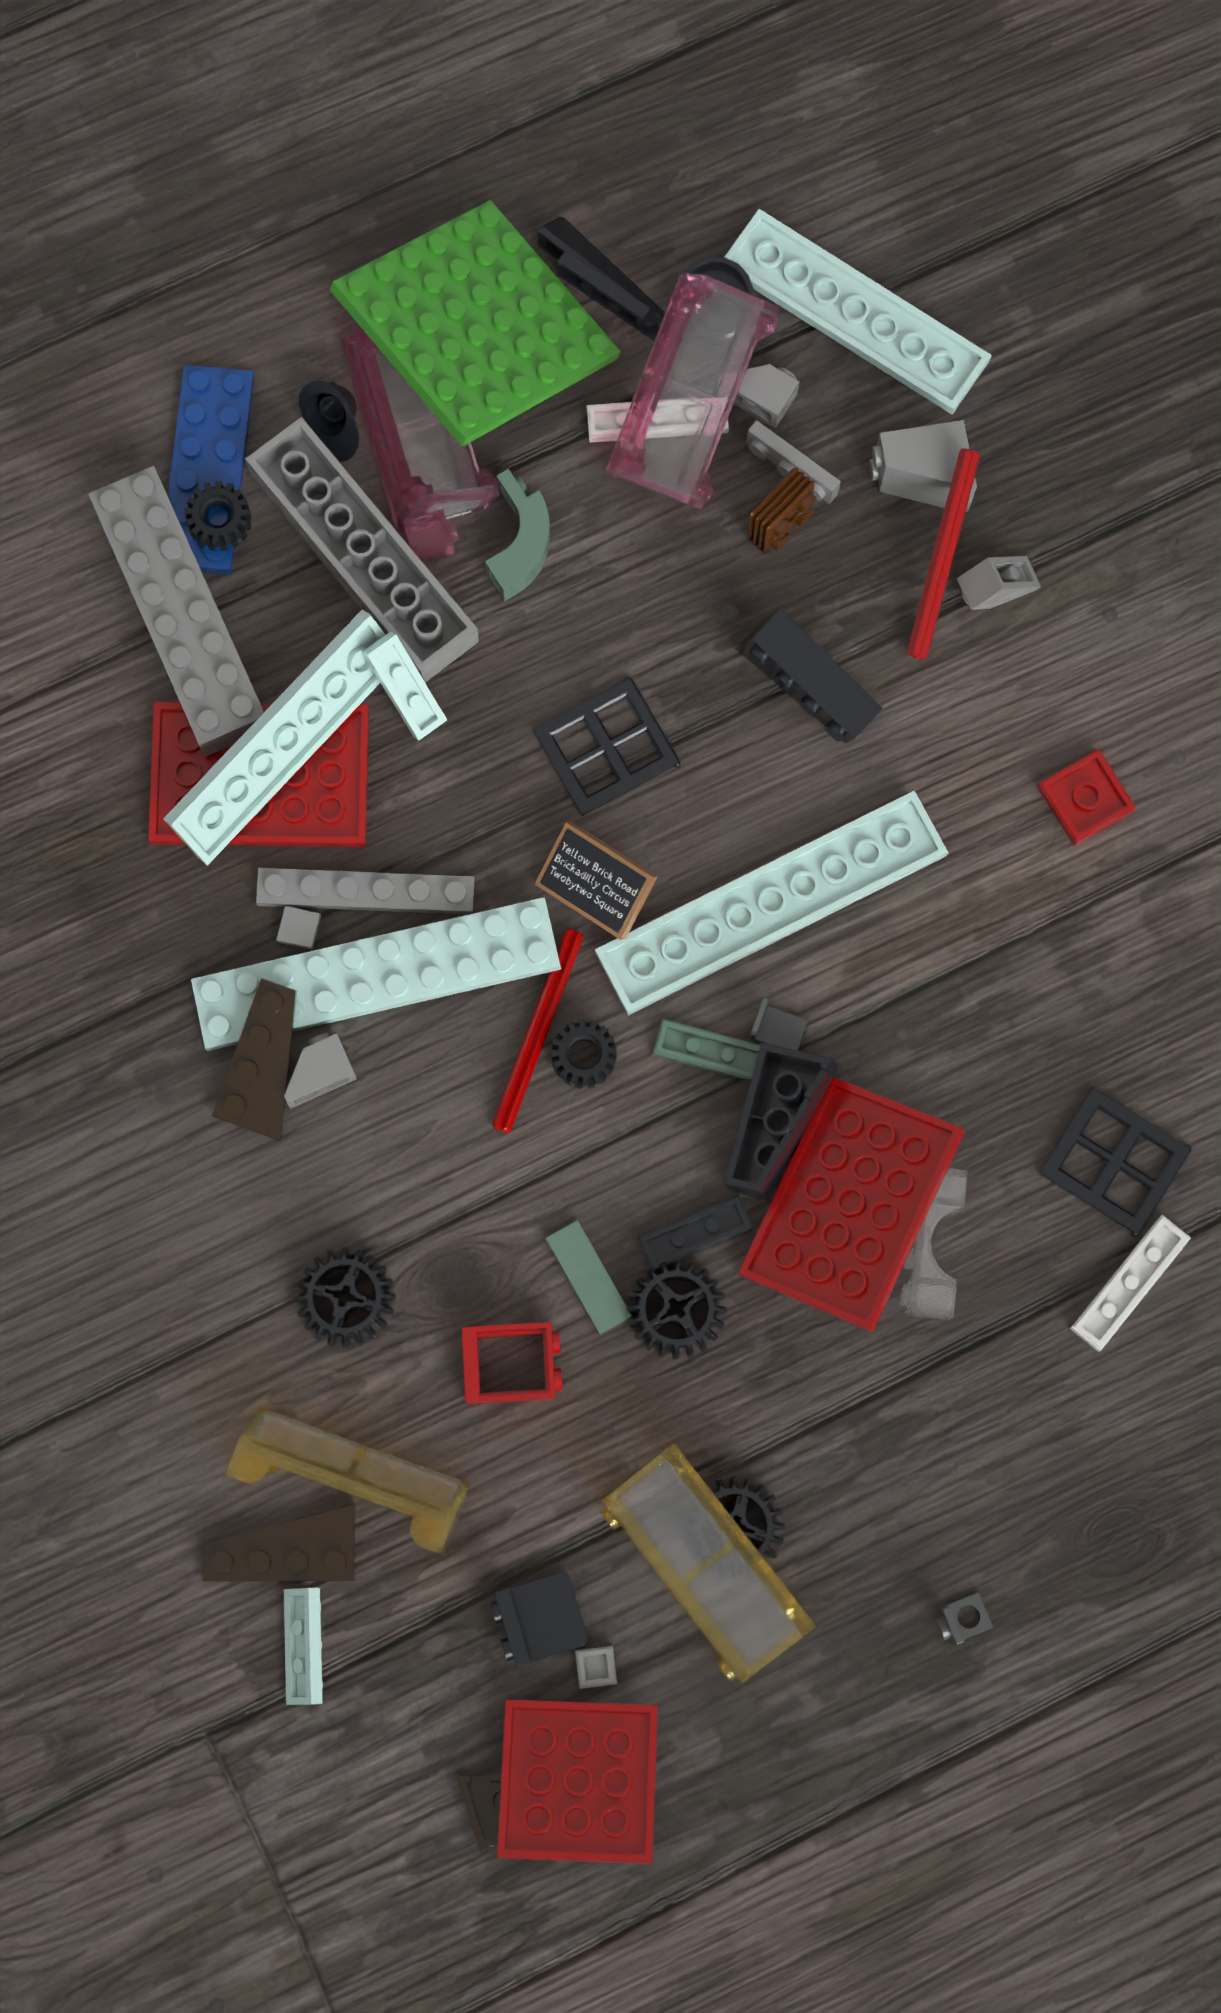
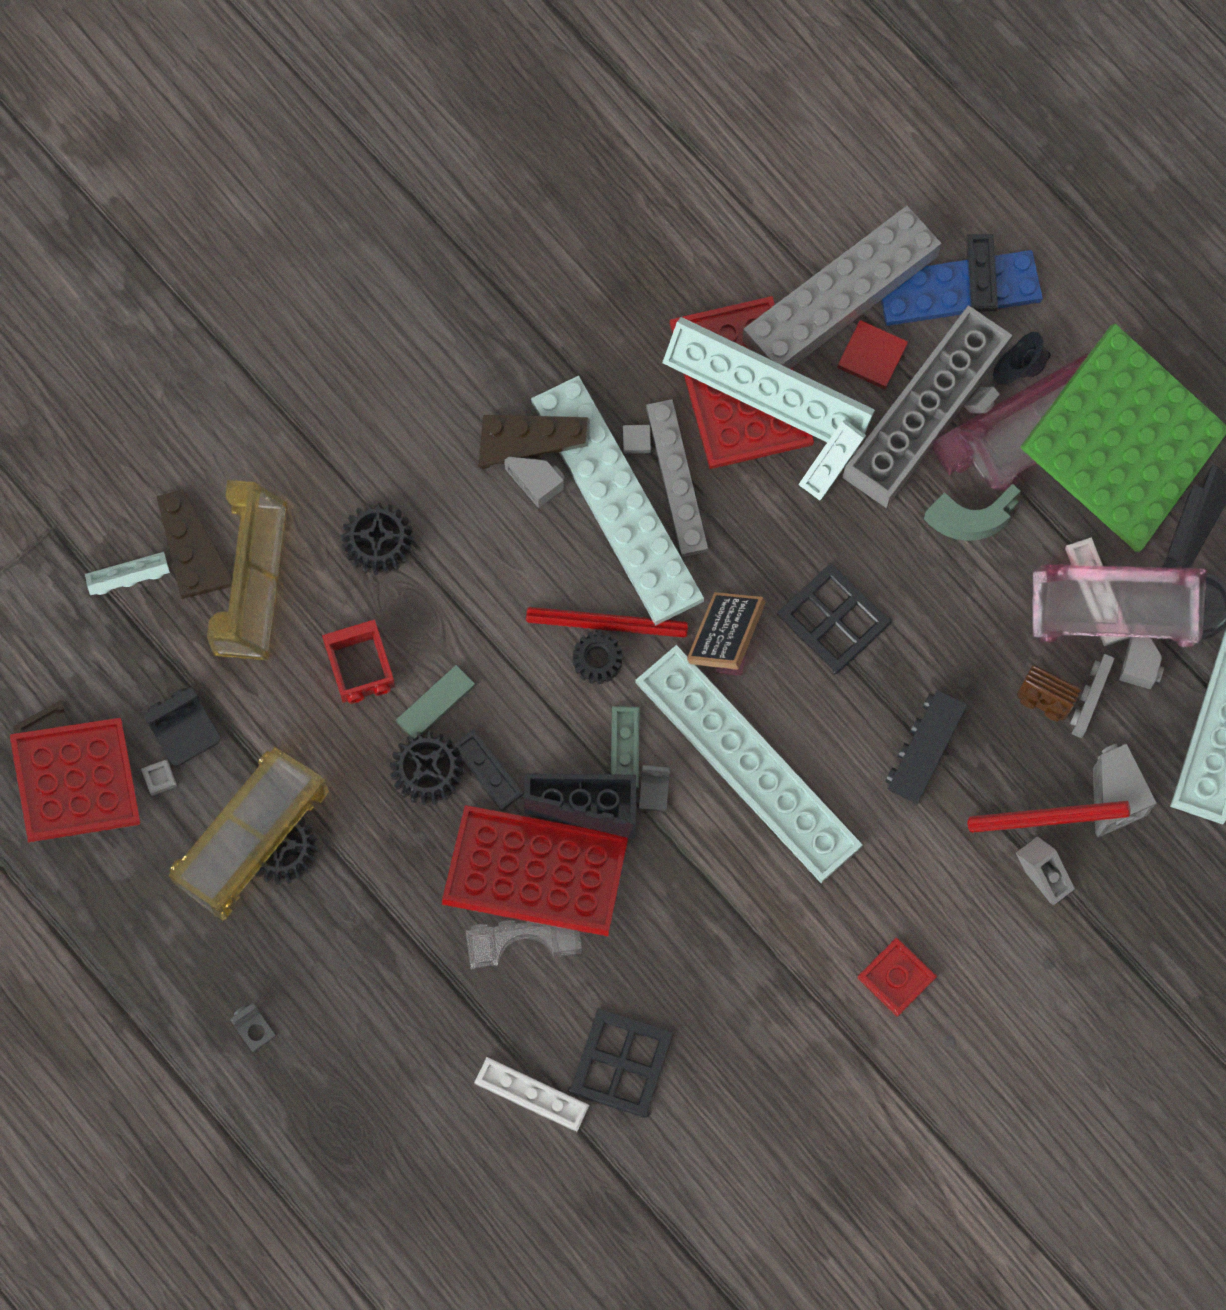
camera: 75 degrees right, 5 degrees down
(199, 432) = (982, 272): none -> black tile
(214, 496) = (925, 286): black tyre -> none
(267, 601) = (872, 354): none -> red tile
(372, 480) = (982, 400): none -> light grey plate

